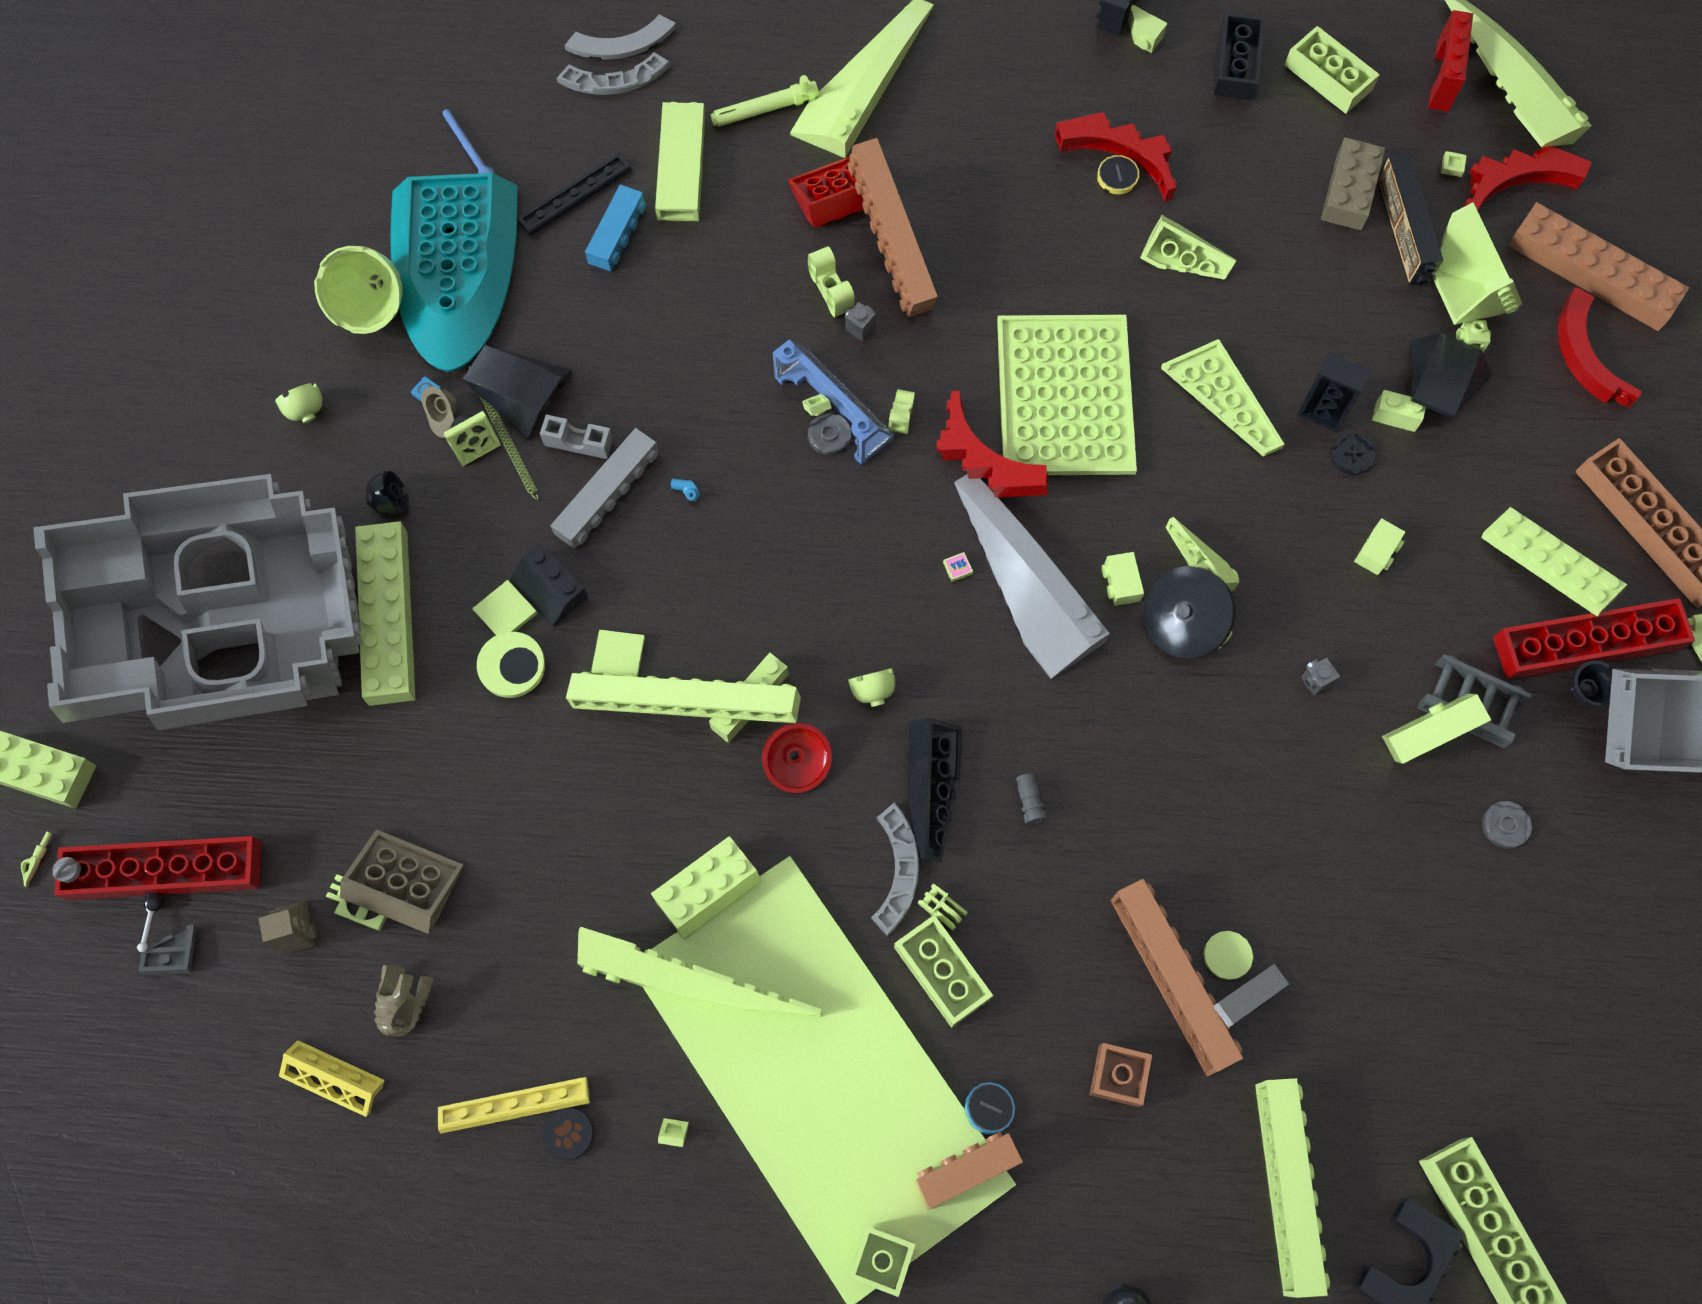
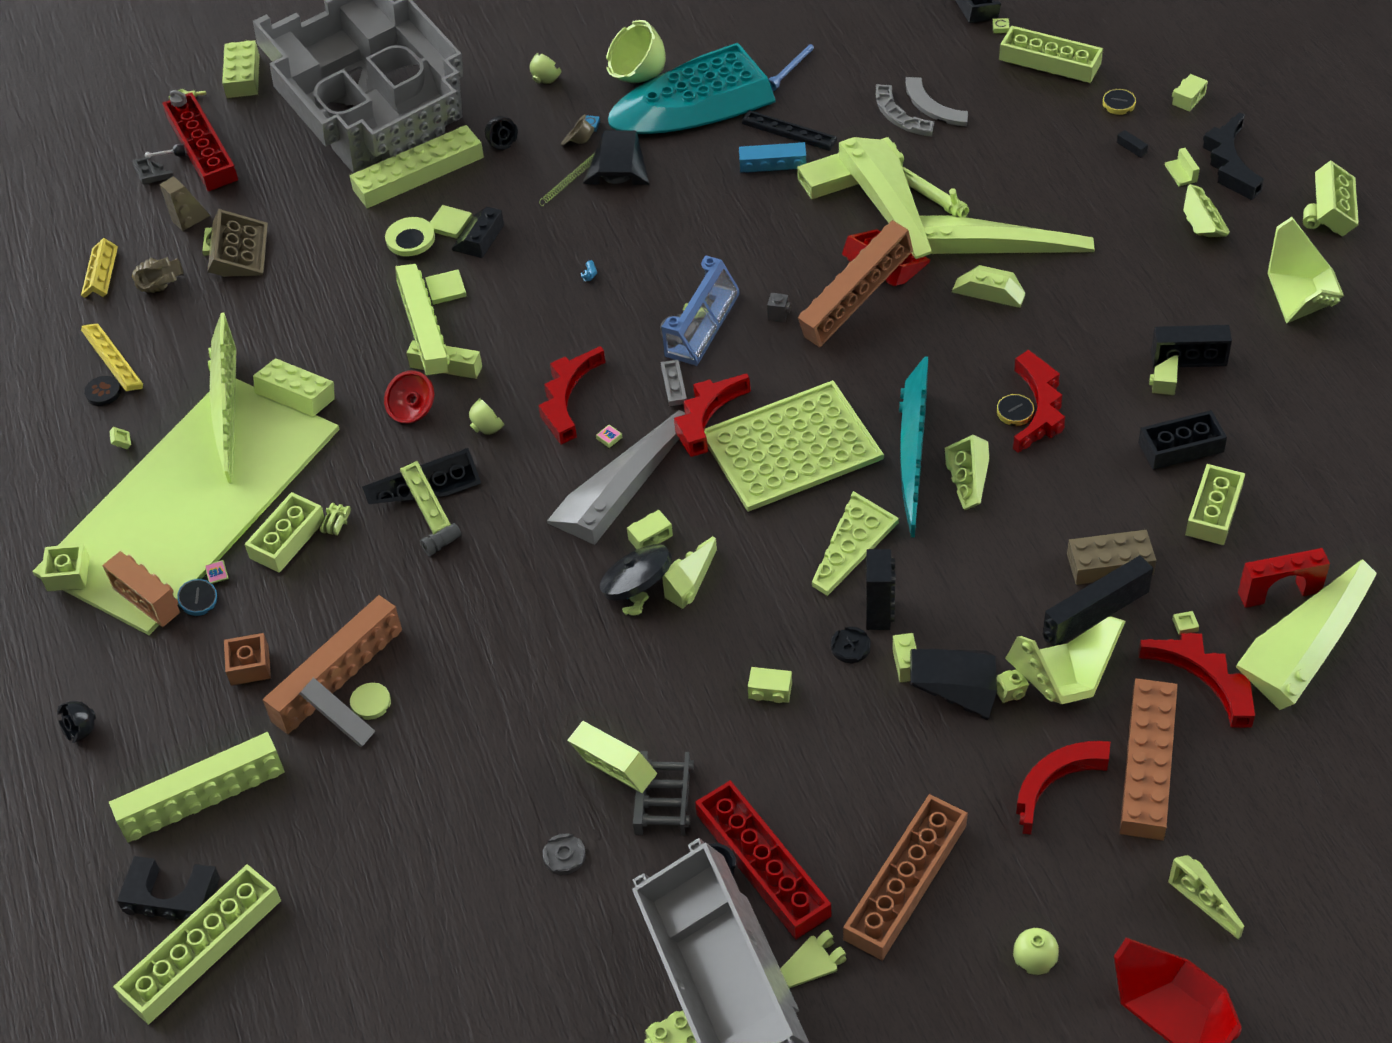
camera: 70 degrees right, 20 degrees down
(471, 437) = (563, 150): yellowish green piece -> none
(559, 434) = (593, 200): light grey arch -> none
(605, 488) = (565, 230): light grey brick -> none
(730, 136) = (884, 182): none -> yellowish green wedge
(822, 270) = (801, 278): yellowish green beam -> none
(895, 606) = (566, 375): none -> red arch
(901, 411) = (725, 356): yellowish green leg -> none
(906, 870) = (352, 494): light grey tile -> none
(914, 470) = (673, 382): none -> light grey plate
(933, 116) = (991, 285): none -> yellowish green wedge
(959, 1073) = (216, 572): none -> tile
(969, 793) = (425, 497): none -> yellowish green tile
(1099, 262) = (911, 443): none -> teal wedge
(1319, 675) = (629, 680): flat silver brick -> none
(1554, 561) = (820, 806): yellowish green plate -> none

